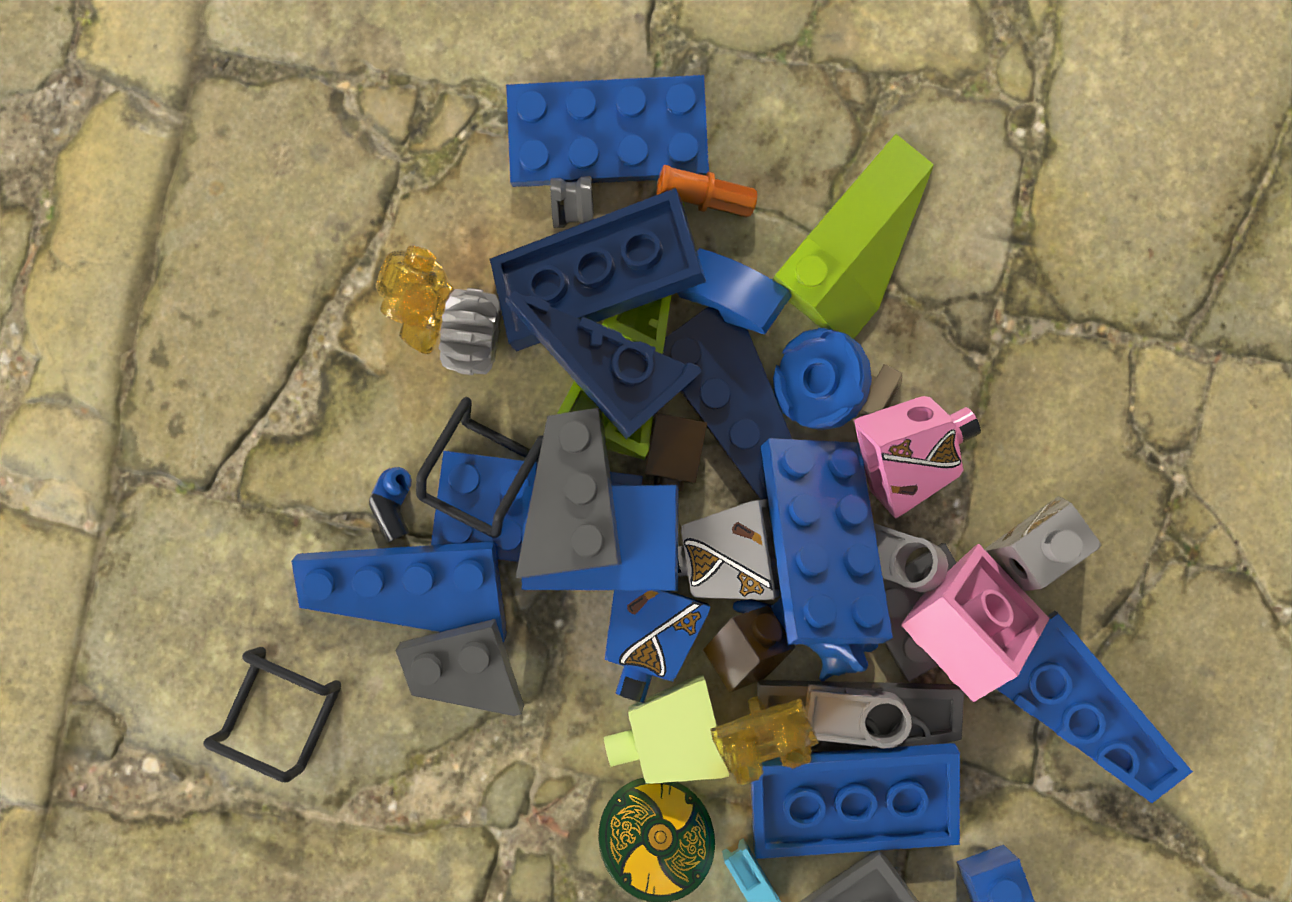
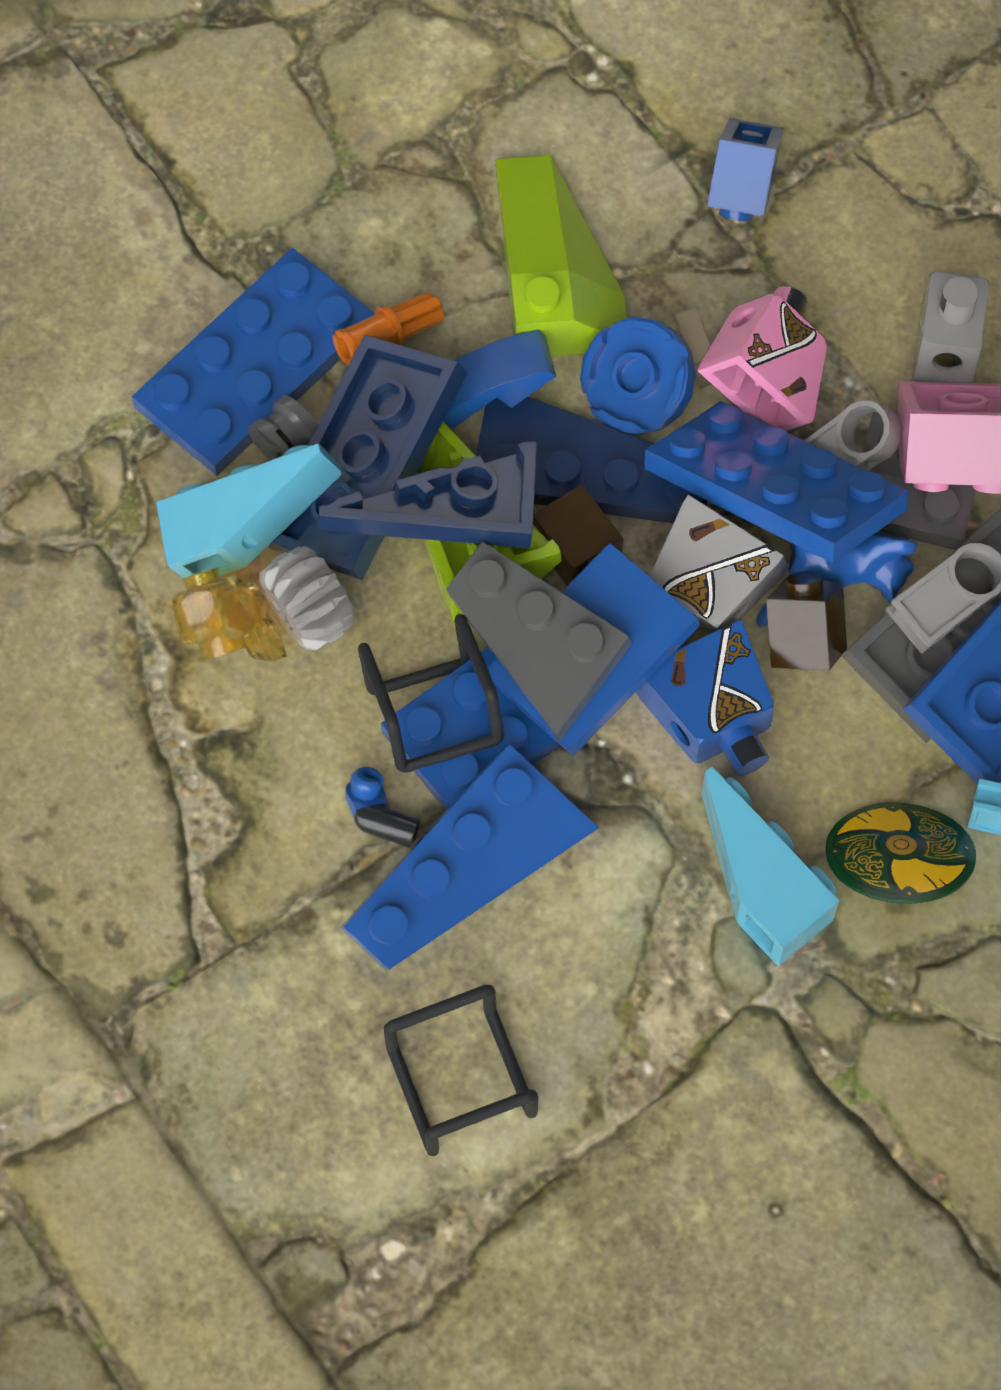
camera: 50 degrees left, 20 degrees down
(462, 668) = (586, 880): dark grey wing -> none
(484, 238) = (242, 513): none -> medium azure slope
(559, 783) = (767, 883): none -> medium azure slope
(671, 736) = (823, 759): yellowish green torso -> none
(765, 735) = (894, 664): clear yellow hips -> none
(1045, 298) = (744, 169): none -> slope

